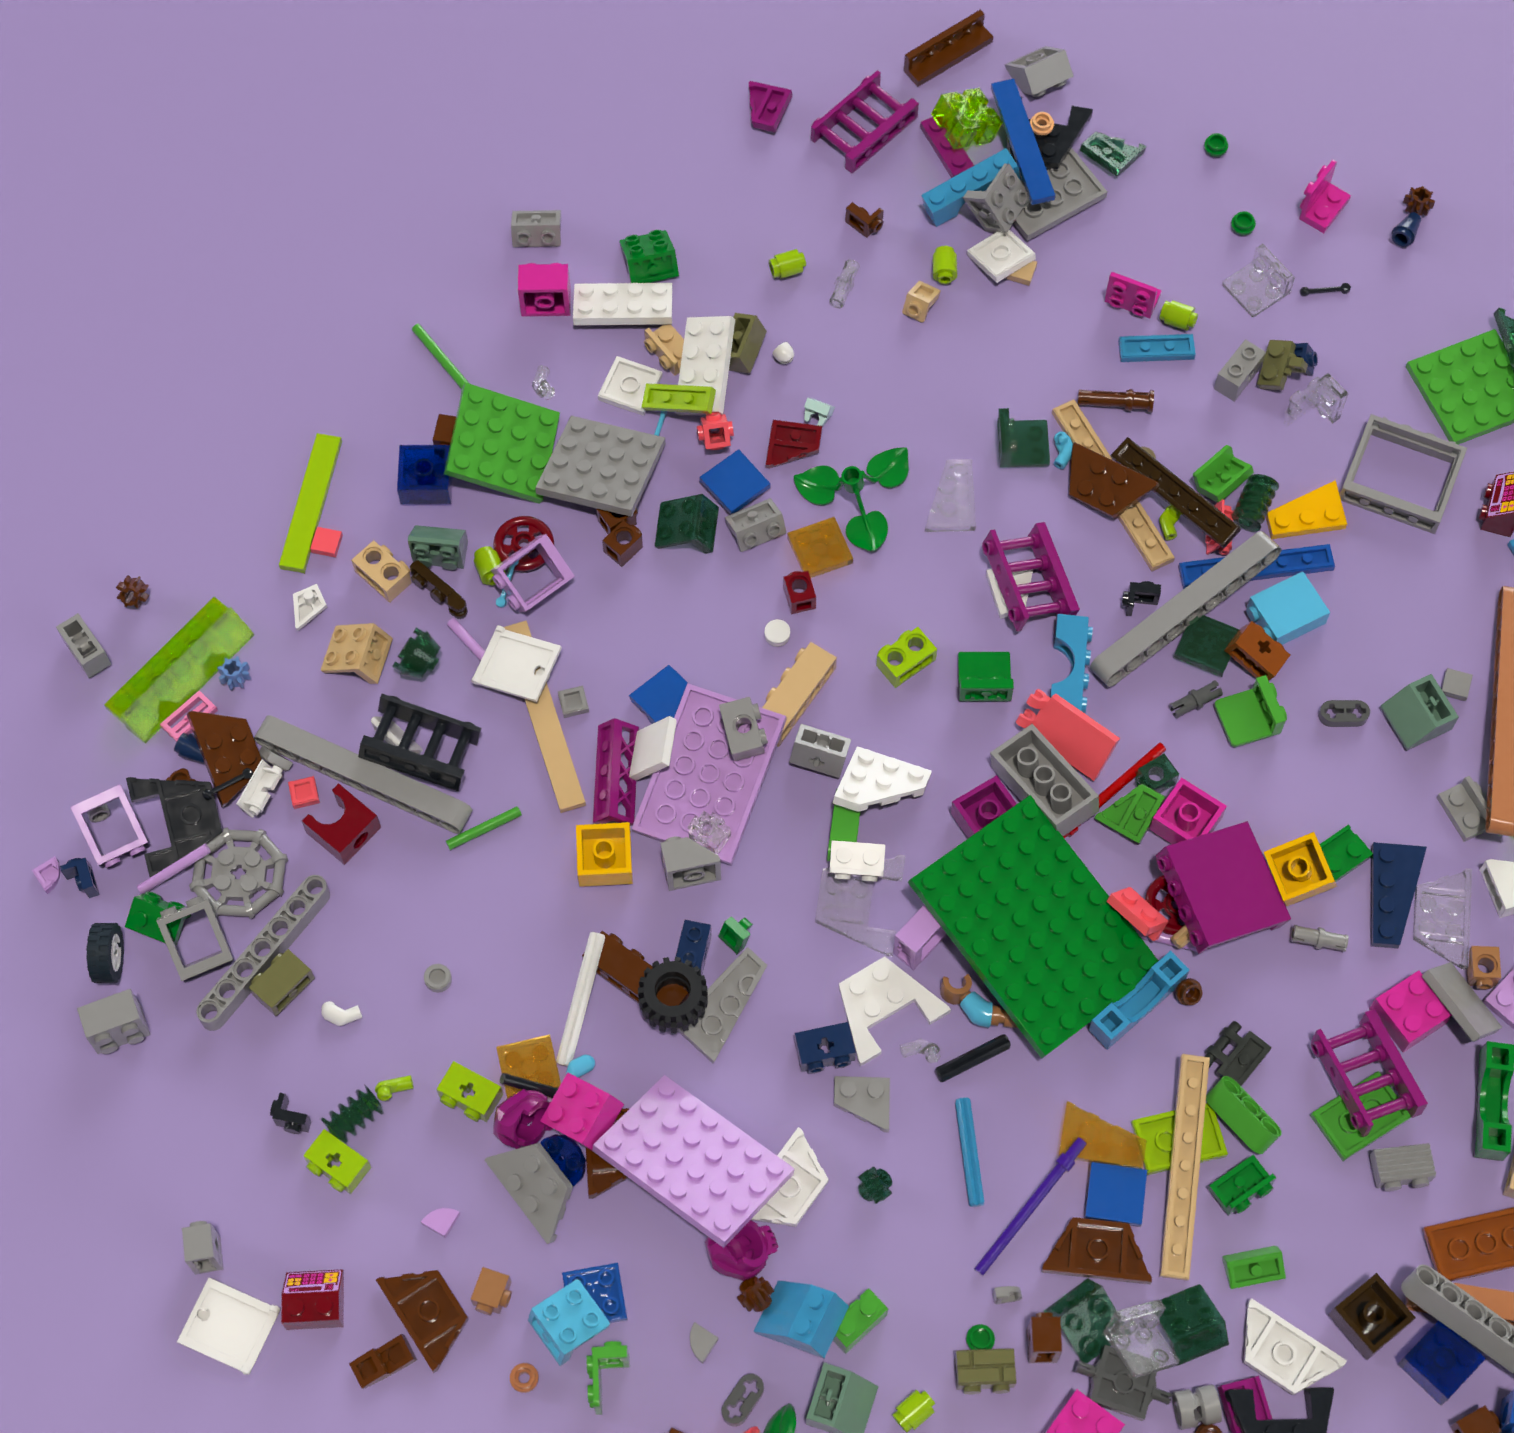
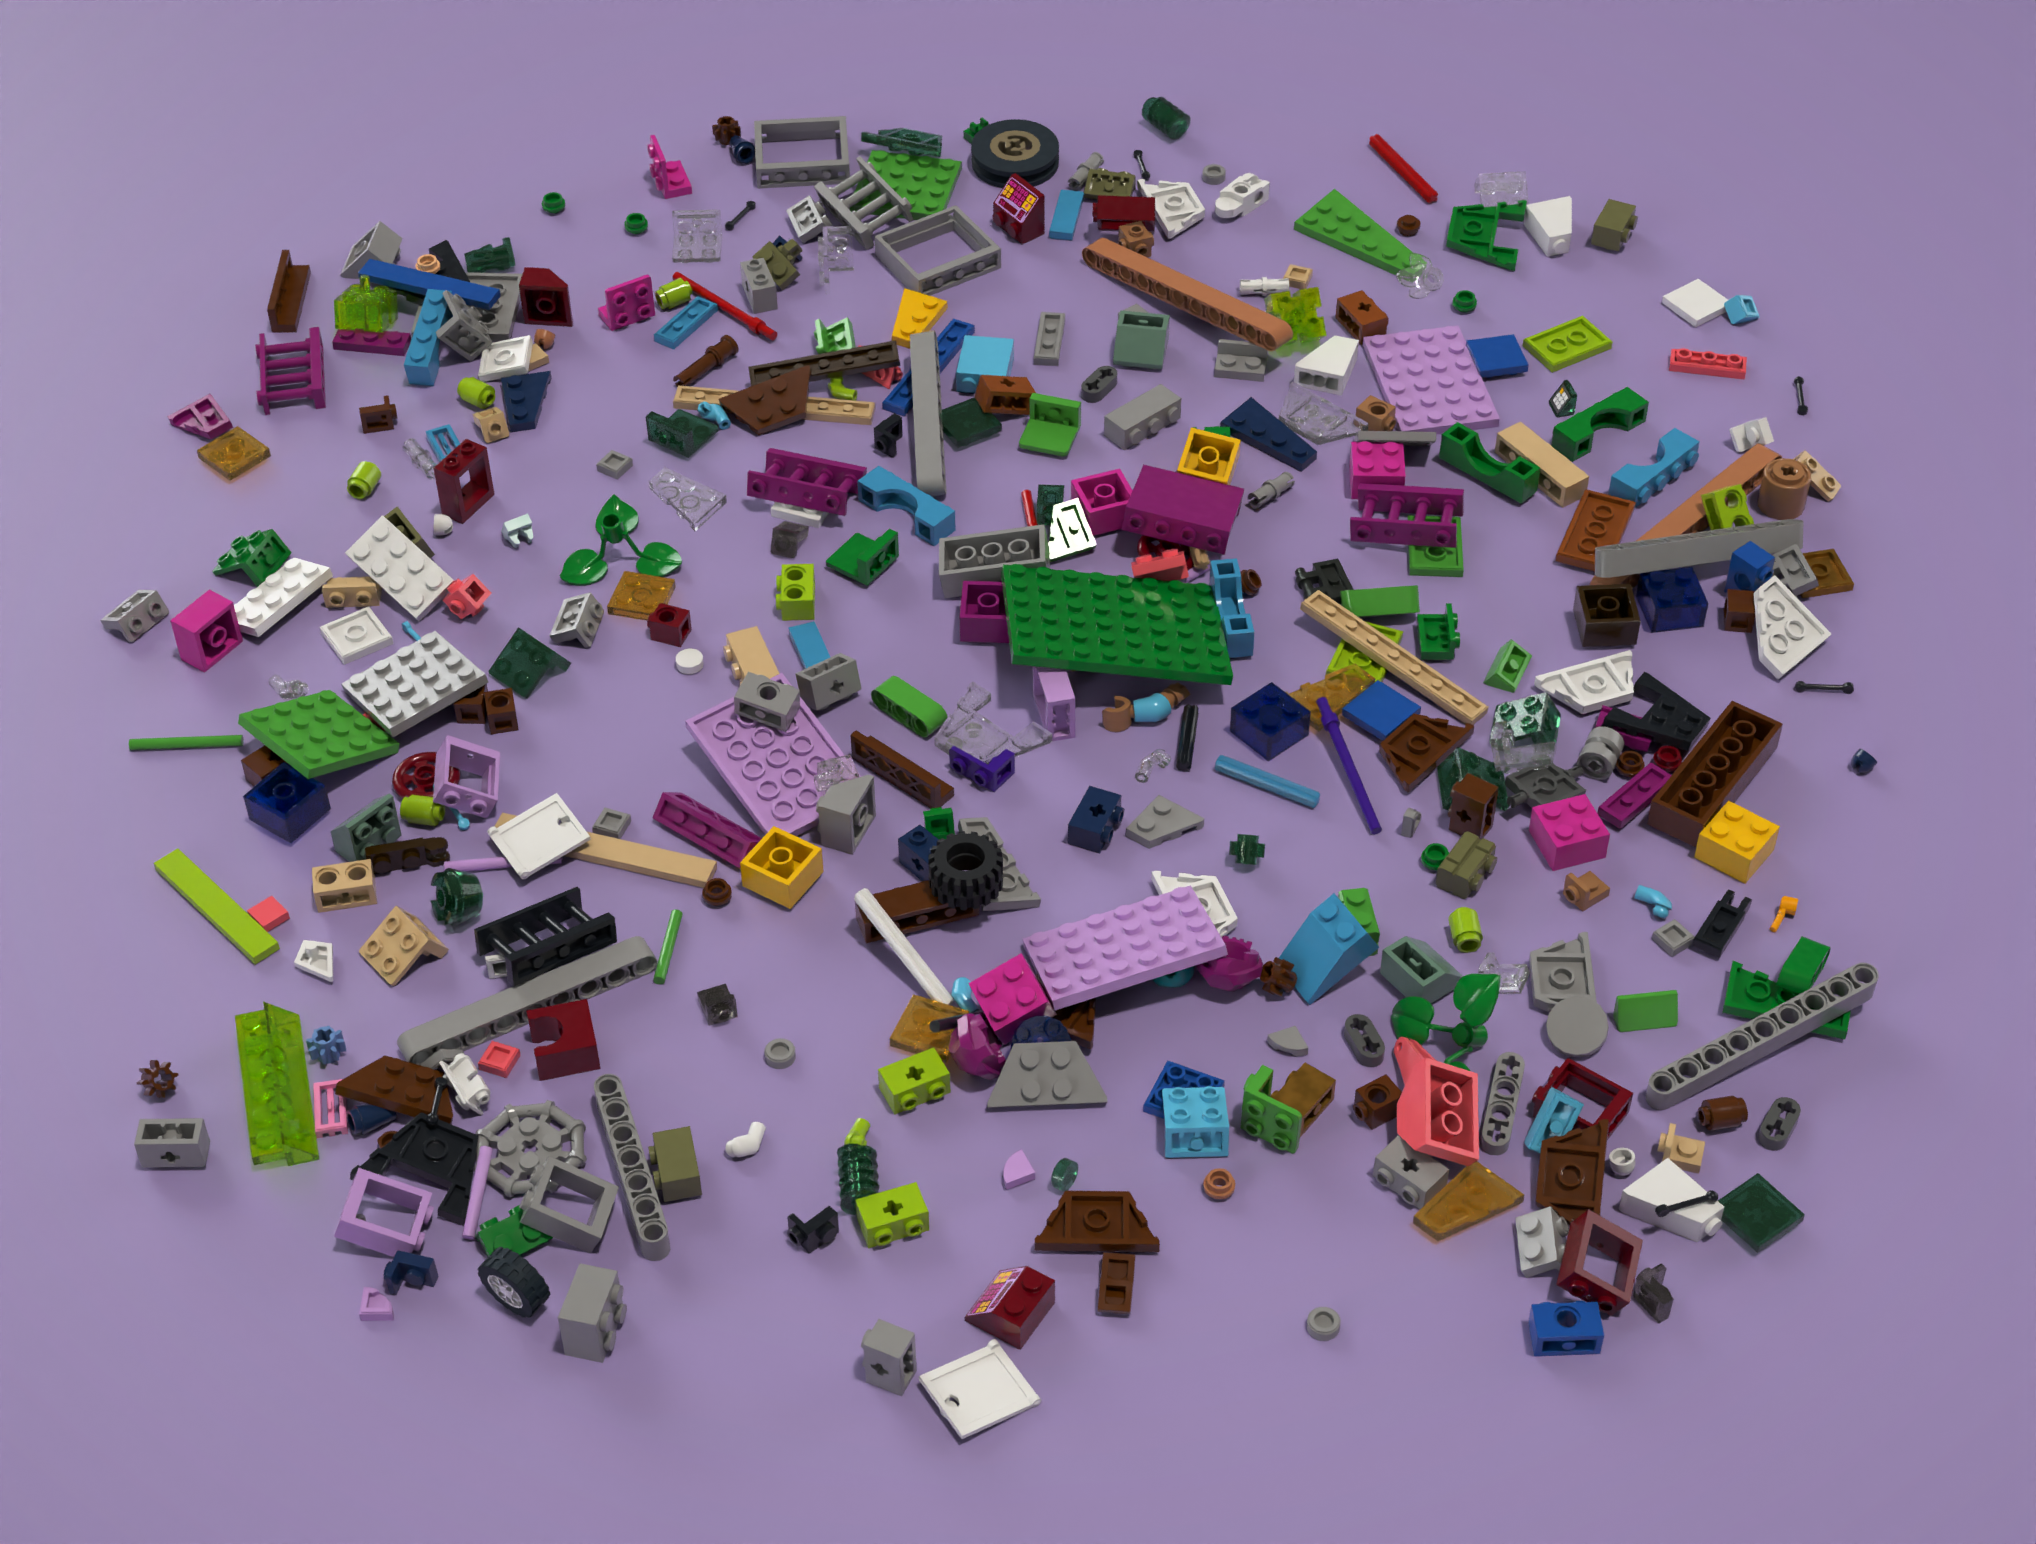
camera: 55 degrees left, 20 degrees down
(451, 902) = (717, 1004): none -> clear smoke bracket
(455, 1258) = (1064, 1174): none -> tile
(491, 1292) = (1118, 1162): medium nougat brick -> none
(553, 818) = (717, 892): none -> reddish brown plate
(643, 1388) = (1308, 1092): none -> pearl gold brick
(653, 748) = (717, 781): white tile -> none
(660, 694) = (674, 759): blue slope -> none
(678, 398) = (412, 597): lime plate -> none
(735, 482) = (525, 610): blue tile -> none
(746, 155) = (233, 453): none -> clear yellow plate
(775, 868) = (900, 771): none -> reddish brown fence
(792, 442) = (527, 561): dark red wing -> none
(826, 938) = (985, 775): none -> dark purple bracket
(827, 349) = (464, 502): none -> dark red window
(856, 710) = (808, 644): none -> dark azure tile
(857, 859) = (951, 705): white bracket -> none
(865, 303) = (438, 431): none -> dark azure tile
(878, 779) = (892, 661): white plate -> none
(878, 994) = (1077, 763): white wing -> none
(949, 420) = (614, 464): none -> light grey tile
(964, 605) = (786, 538): none -> clear smoke bracket
(969, 300) = (524, 399): none -> dark blue wing
(1032, 1113) = (1270, 721): none -> clear blue brick
(1048, 263) = (544, 338): none -> nougat hinge
(1071, 732) = (964, 518): coral tile -> none
(1081, 228) = (544, 298): none -> dark red slope
(1195, 401) = (755, 324): none -> red bar
(1195, 699) = (1006, 452): dark grey pin -> none
(1255, 502) = (874, 329): clear green piece -> none
(1326, 777) = (1142, 416): none -> light grey brick
(1359, 347) = (808, 218): none -> light grey bracket
(1371, 635) = (1049, 339): none -> light grey tile
(1393, 359) = (841, 208): none -> light grey fence
(1403, 1166) = (1497, 540): light grey brick -> none
(1418, 302) = (804, 172): none -> light grey window

